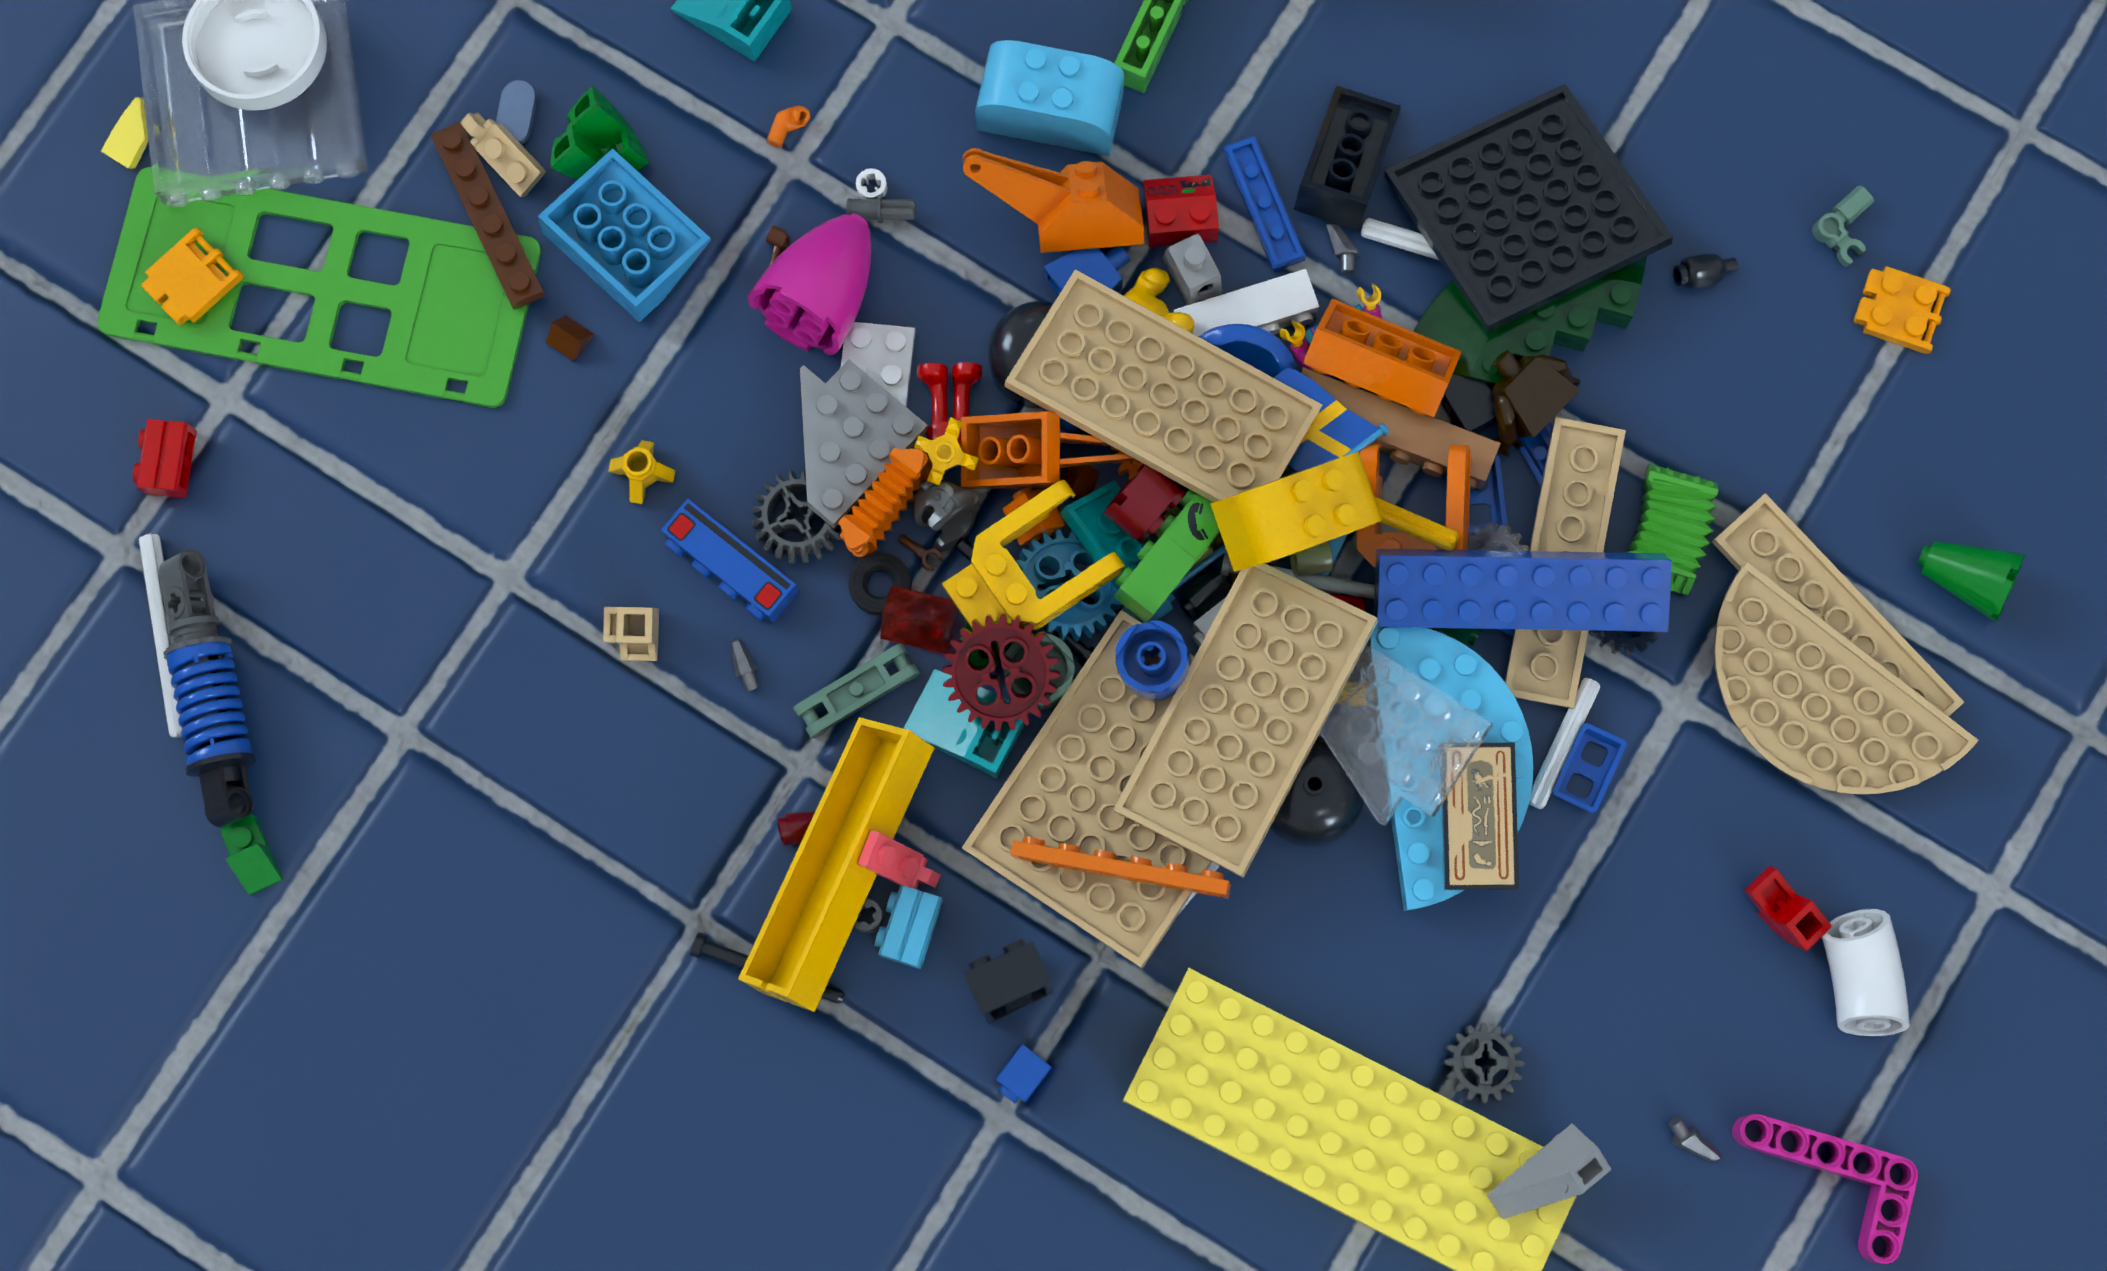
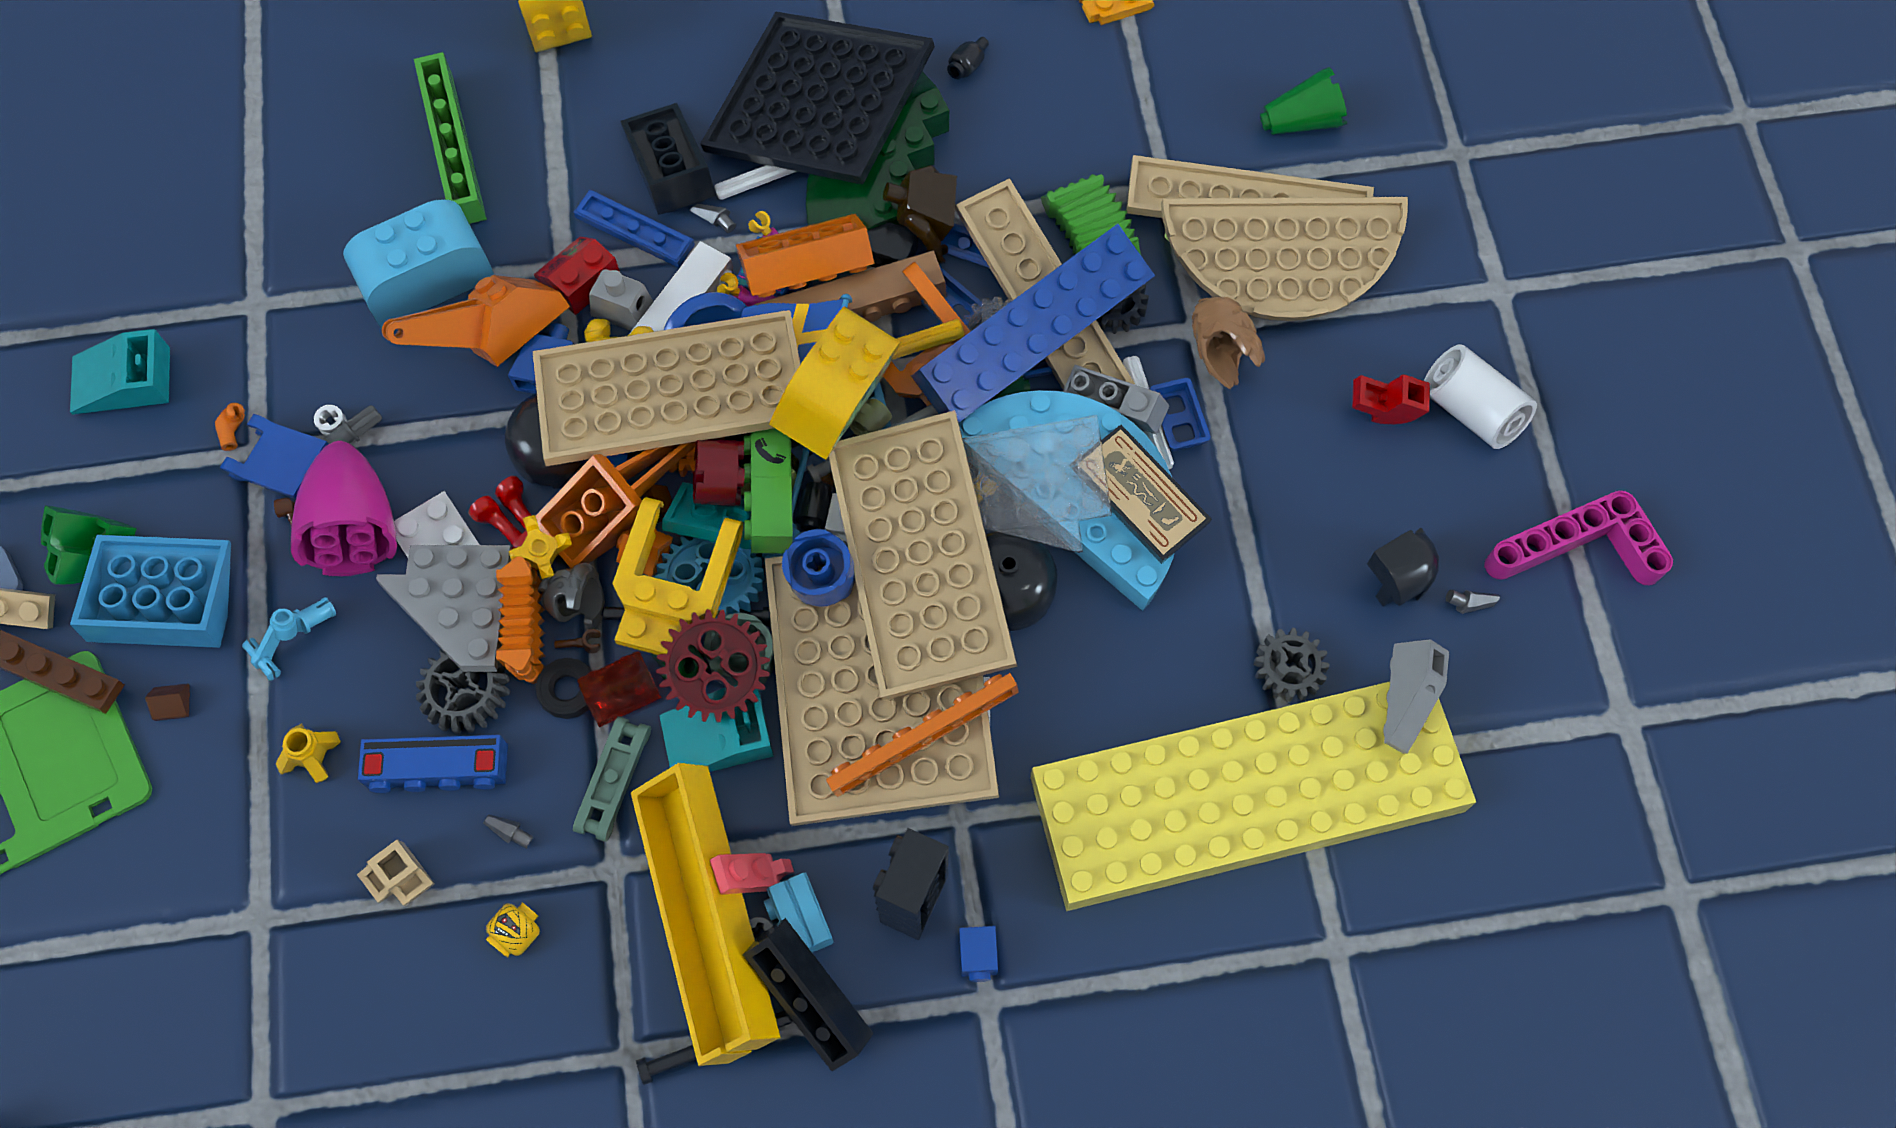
camera: 45 degrees left, 10 degrees down
(686, 750) = (512, 929): none -> yellow head
(698, 351) = (283, 627): none -> medium azure pin
(793, 827) = (646, 917): dark red cone -> none
(805, 190) = (277, 459): none -> blue flag
(863, 996) = (808, 994): none -> black brick
(1541, 711) = (1134, 402): none -> light grey slope
(1654, 1067) = (1405, 567): none -> black brick
(1688, 735) = (1223, 336): none -> medium nougat head

